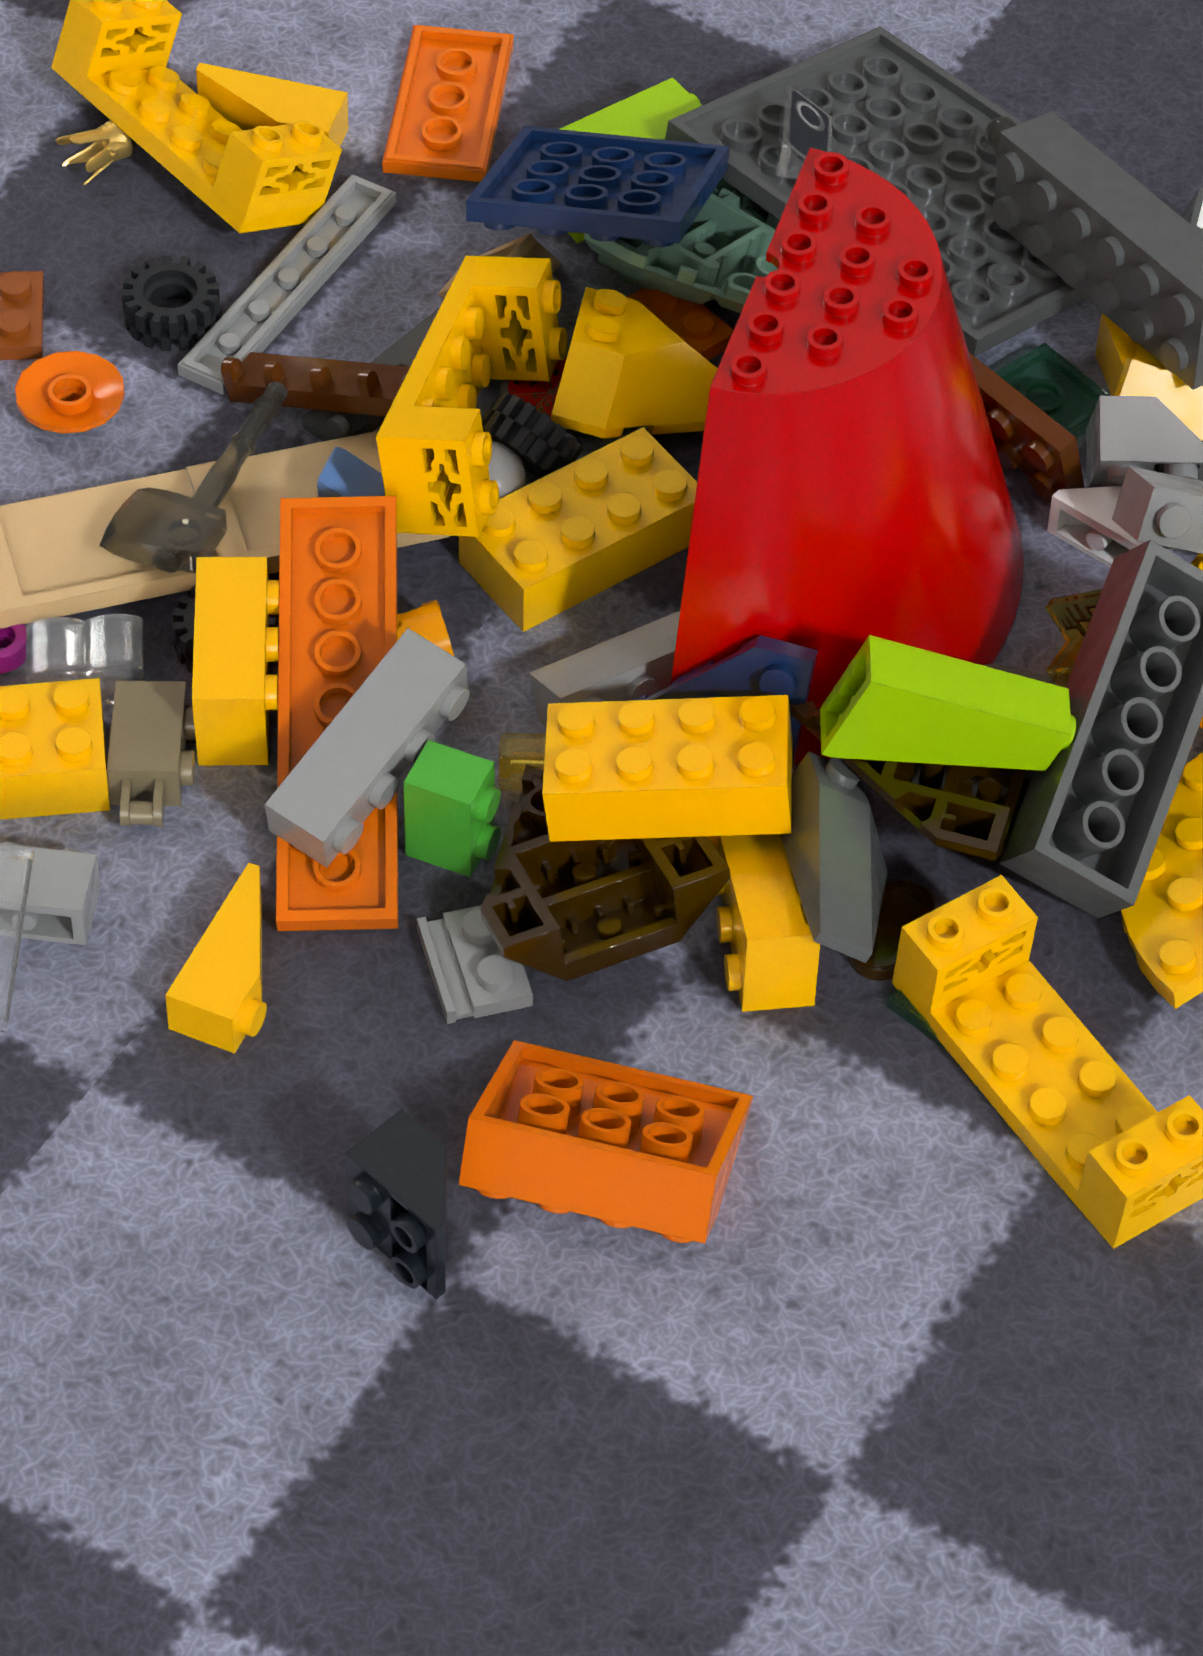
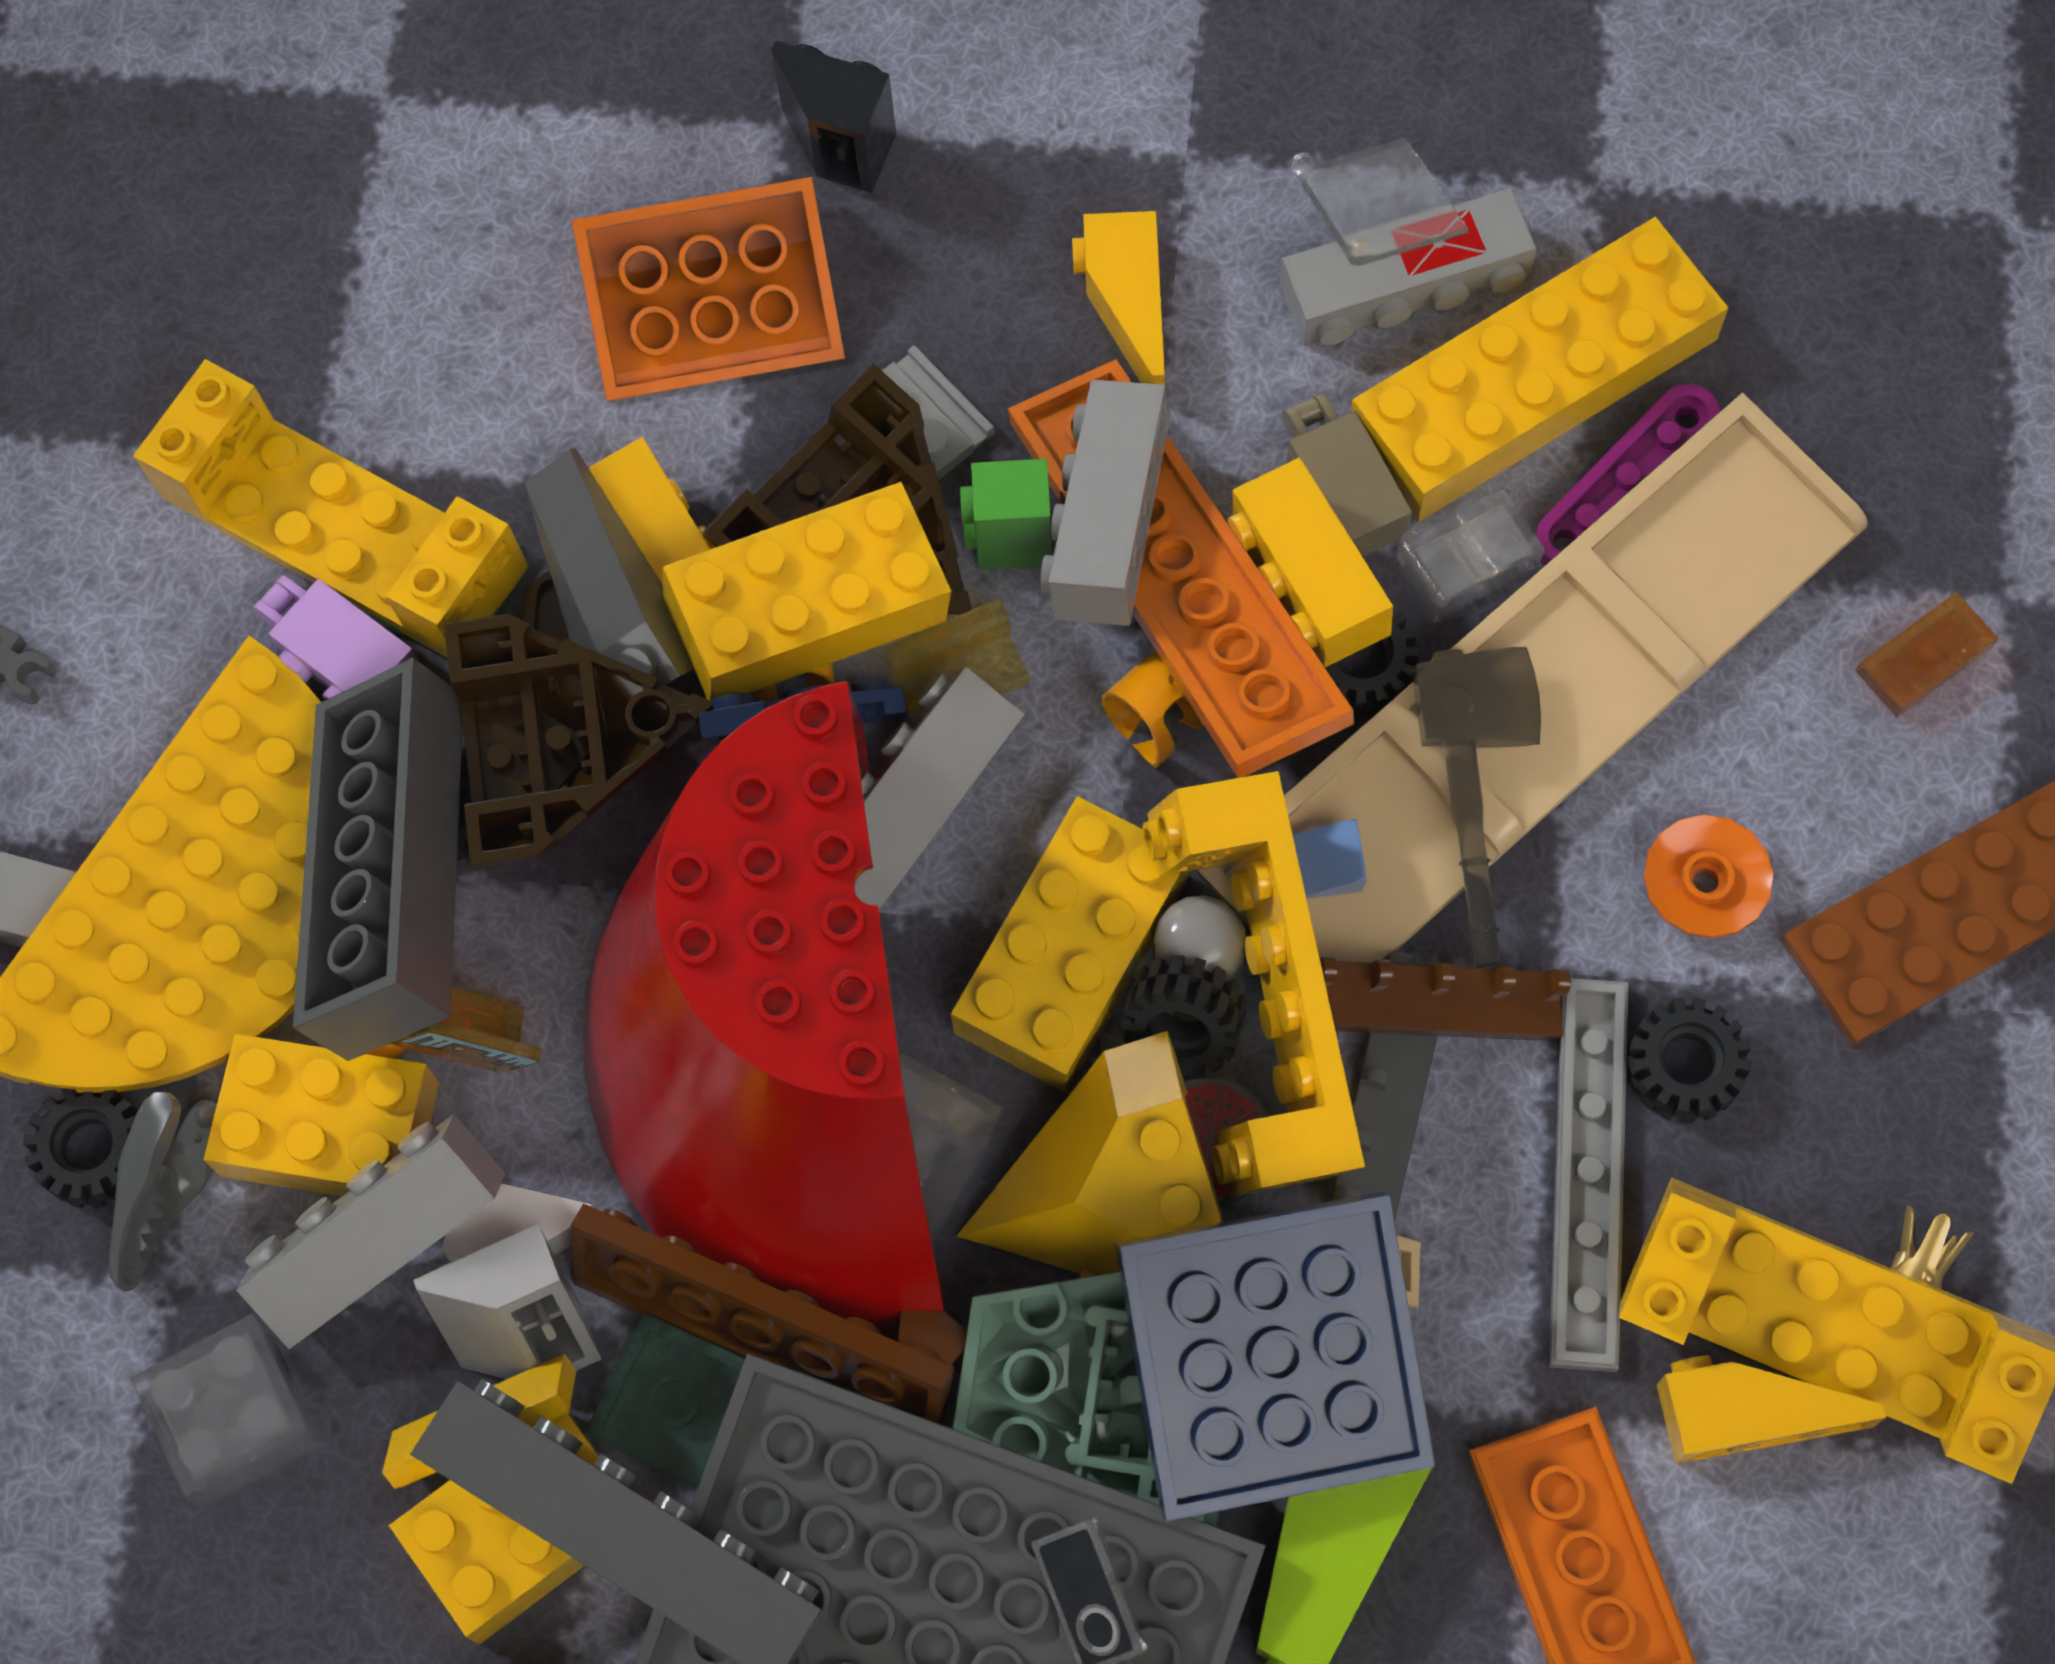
camera: 160 degrees right, 20 degrees up
(942, 711) = (541, 715): lime slope -> none
(1097, 973) = (328, 636): none -> lavender brick

